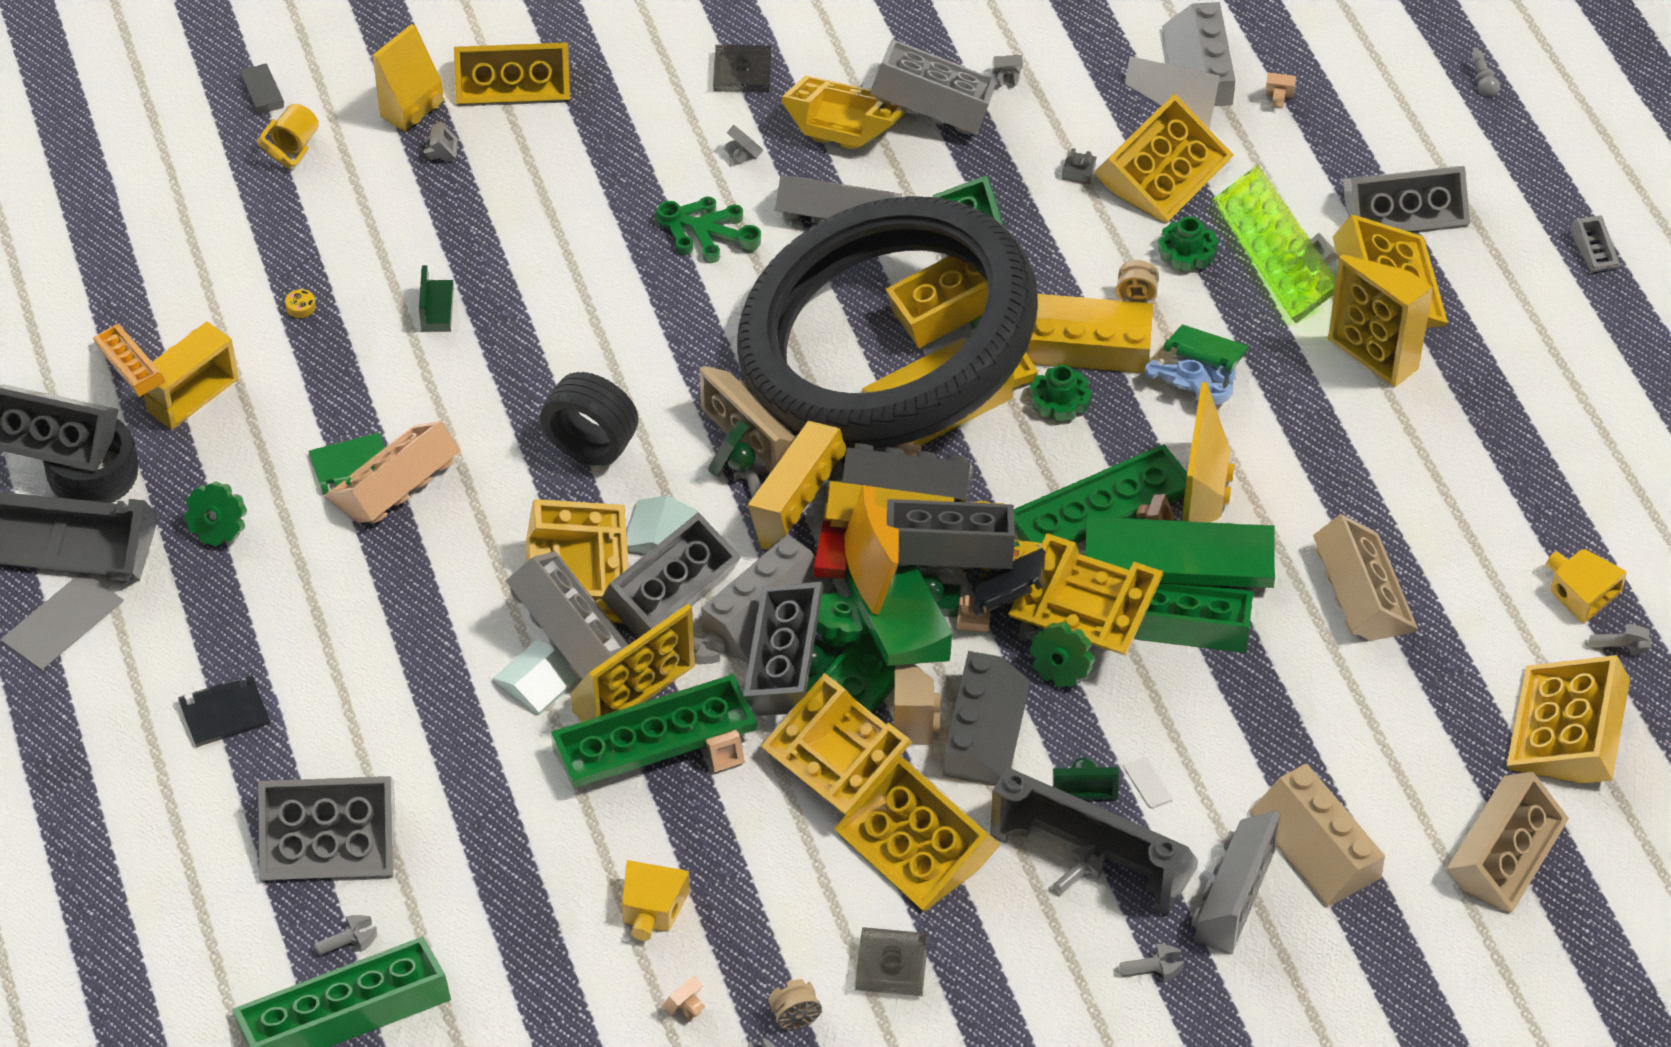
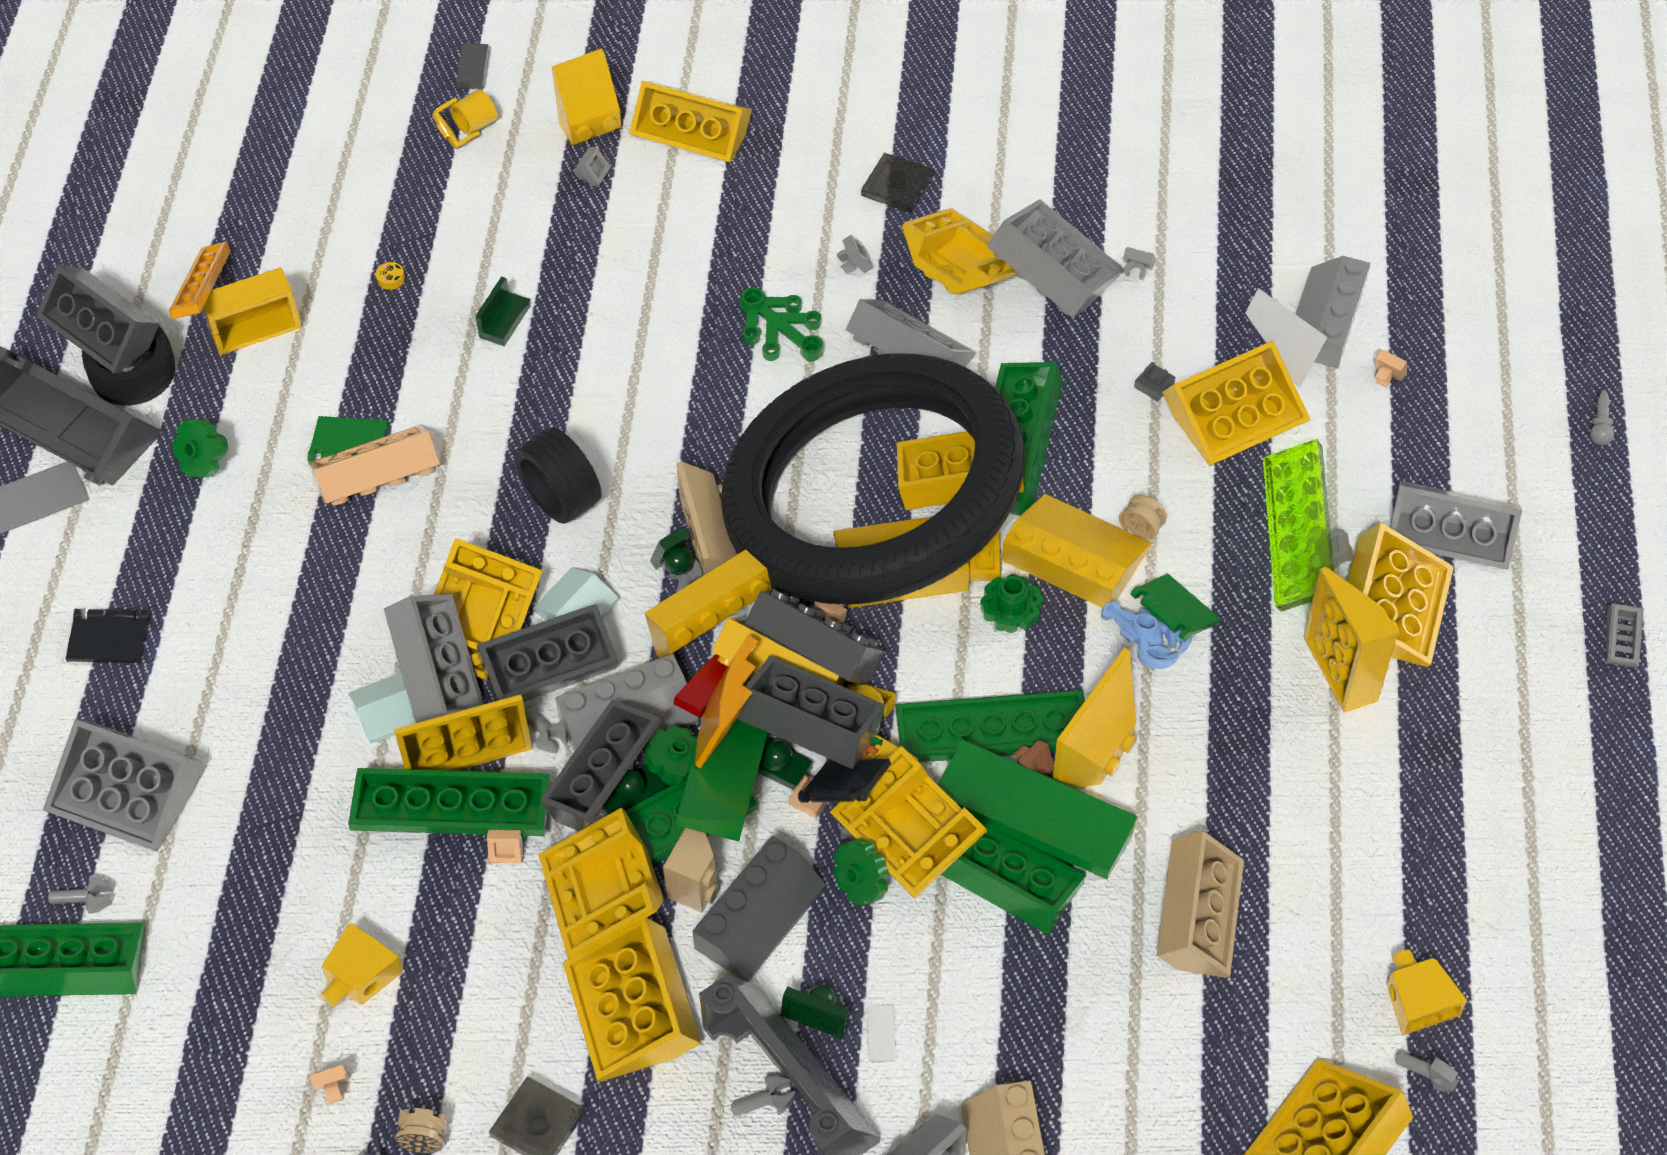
camera: 25 degrees right, 5 degrees up
(1187, 244) = (1214, 495): green plant -> none

